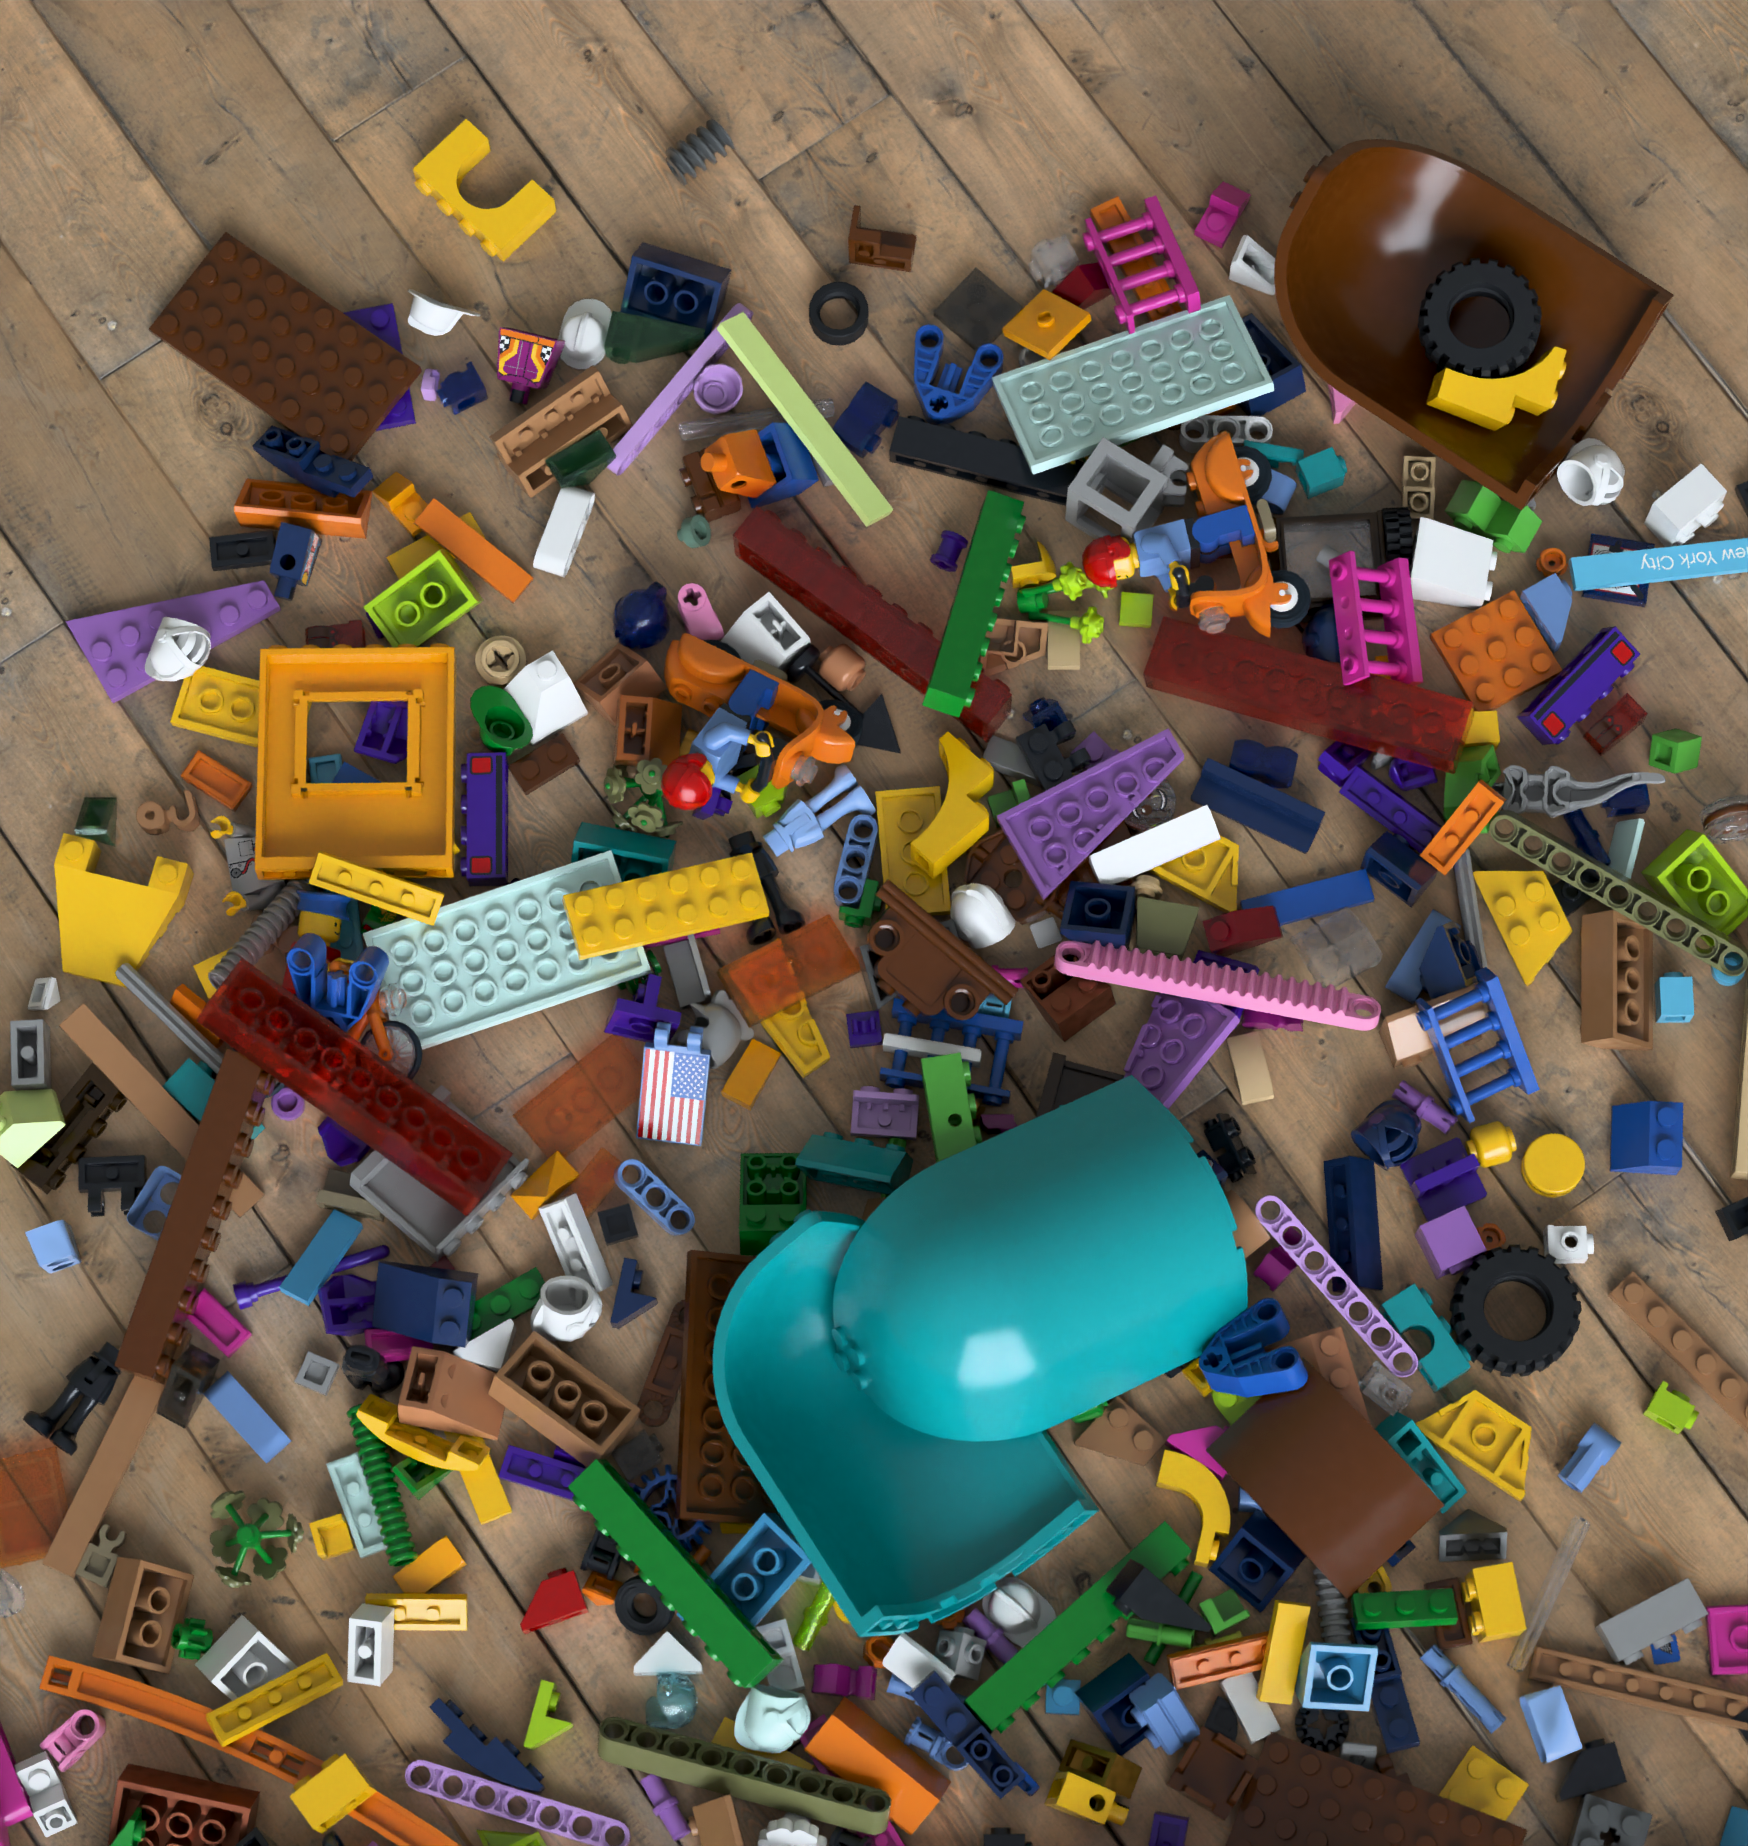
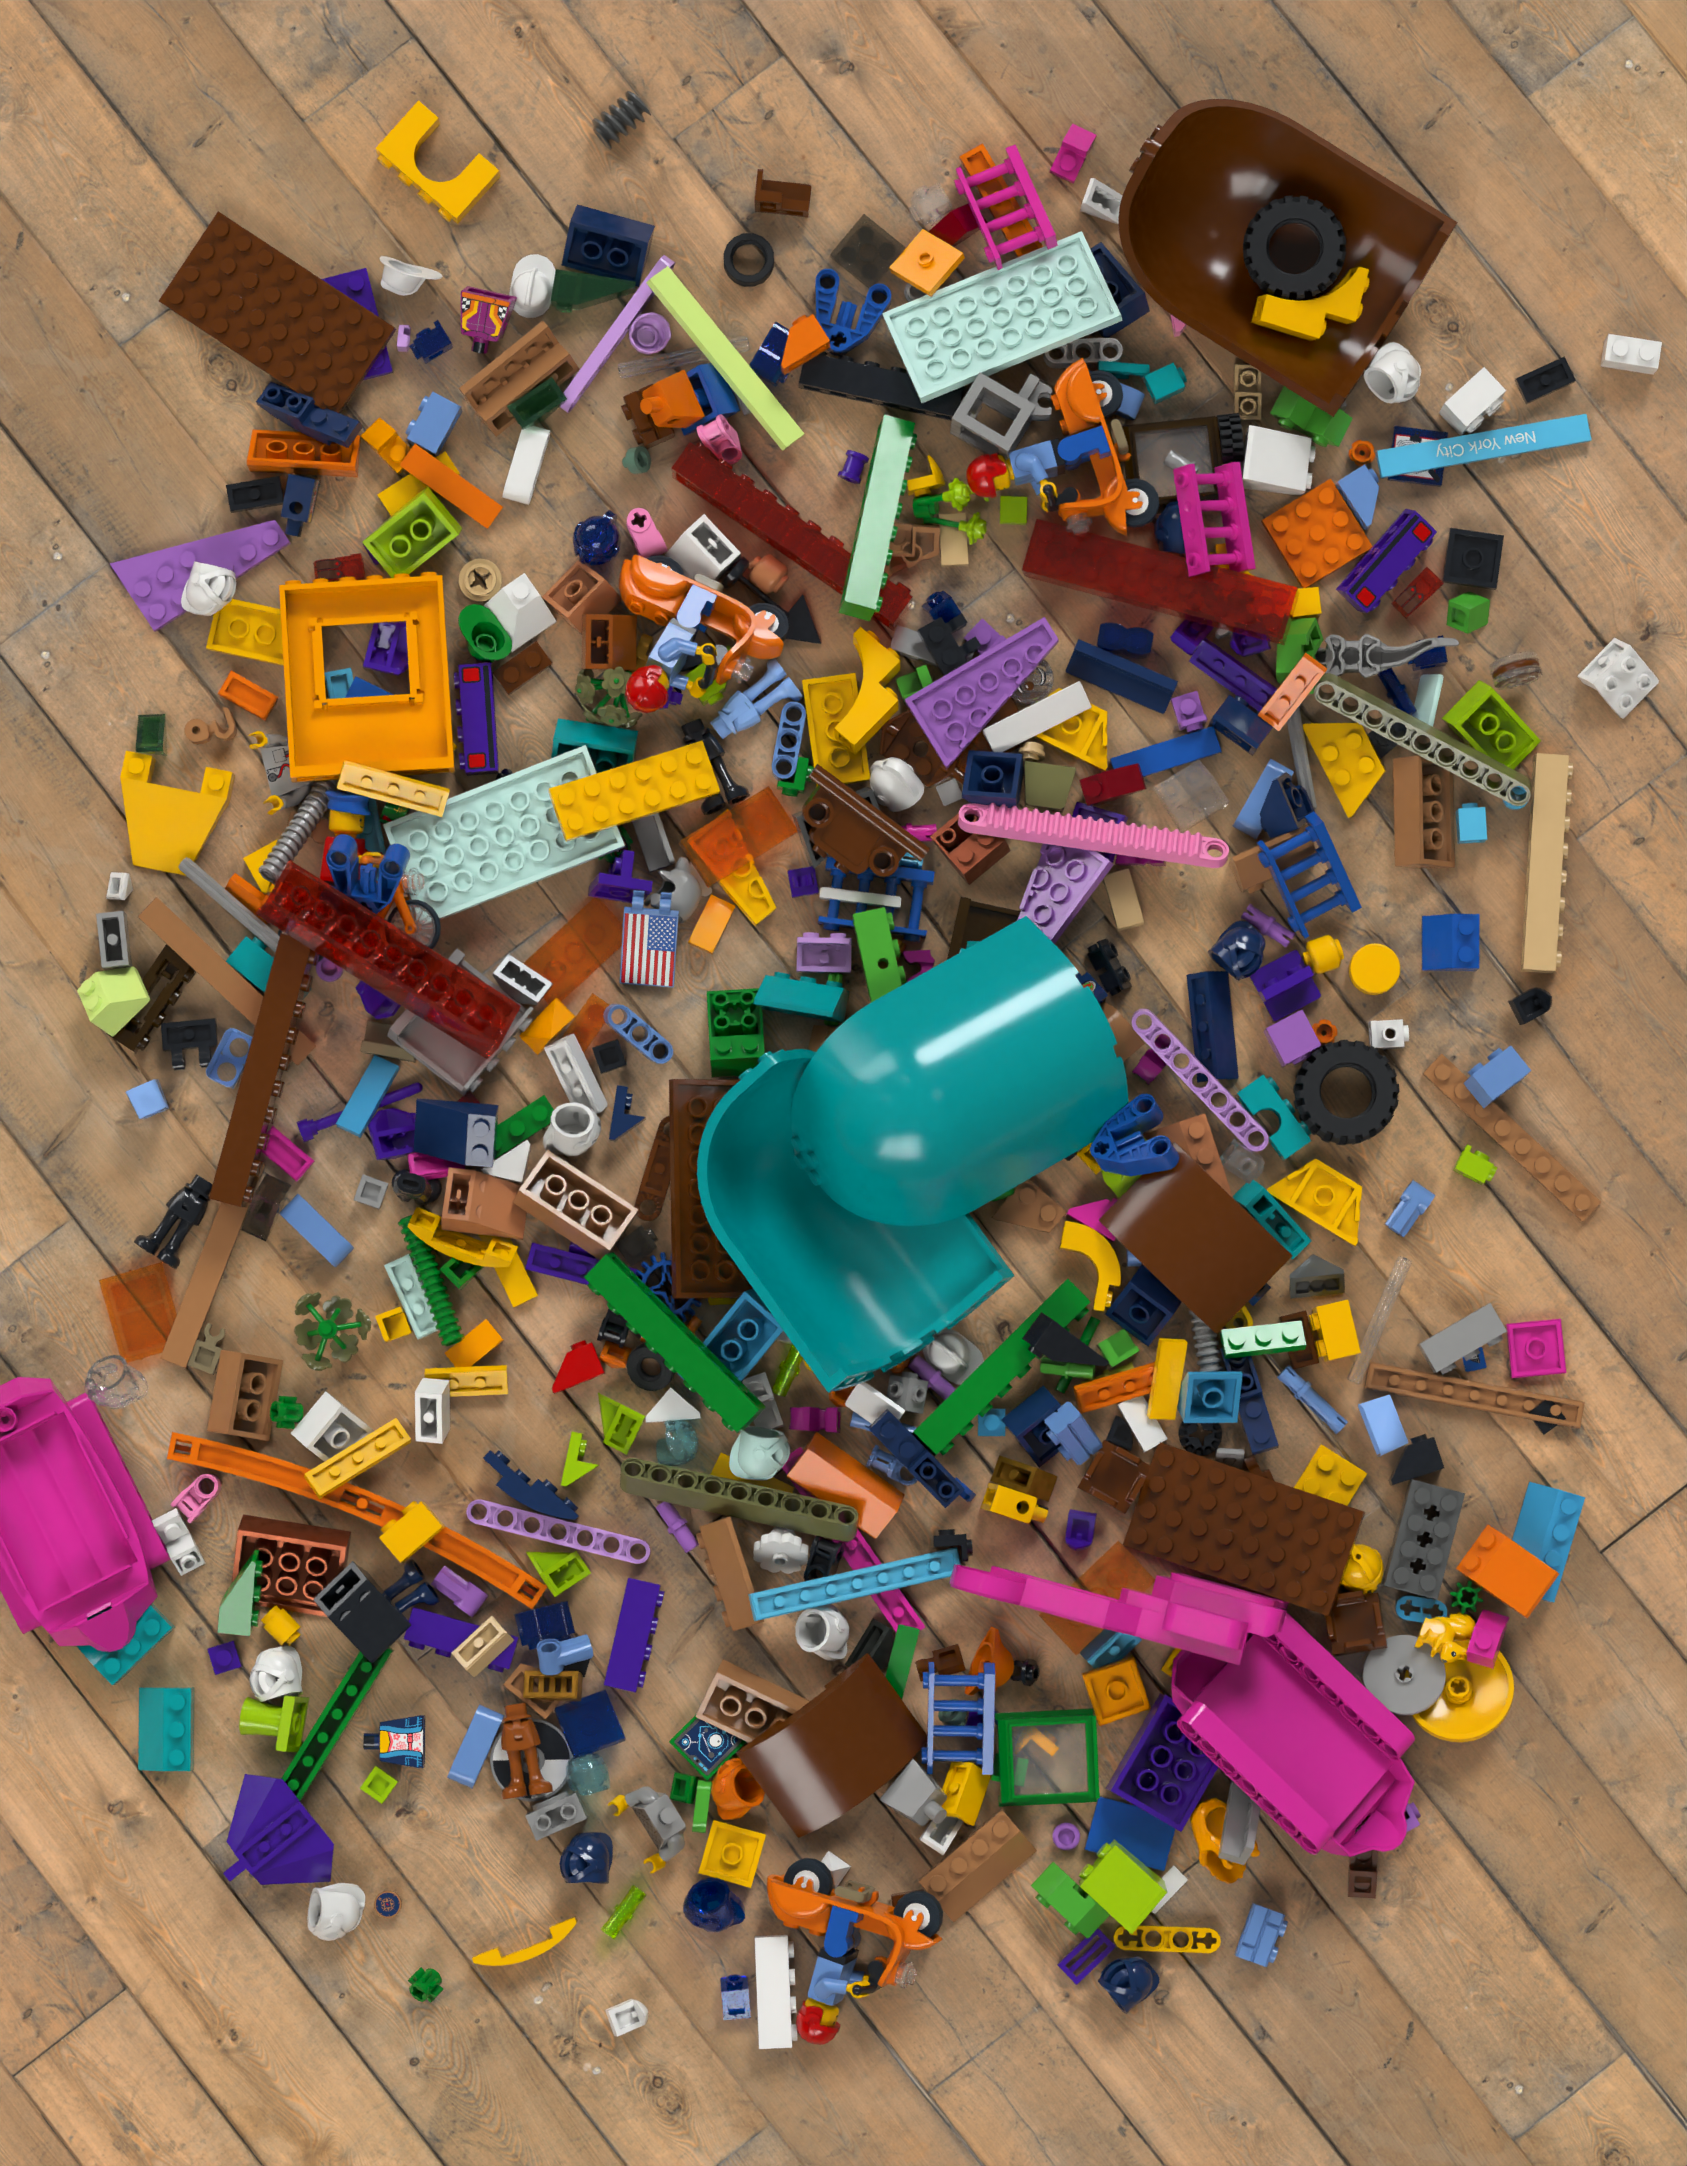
camera: 10 degrees left, 10 degrees up
(459, 478) = (433, 424): none -> medium blue brick
(516, 1128) = (521, 981): none -> dark grey slope
(602, 1674) = (619, 1424): none -> lime slope
(794, 509) = (721, 439): none -> bright pink piece
(897, 403) = (803, 343): none -> orange slope
(1337, 851) = (1189, 712): none -> medium lavender bracket
(1682, 689) = (1473, 558): none -> black plate
(1700, 1300) = (1497, 1076): none -> medium blue brick

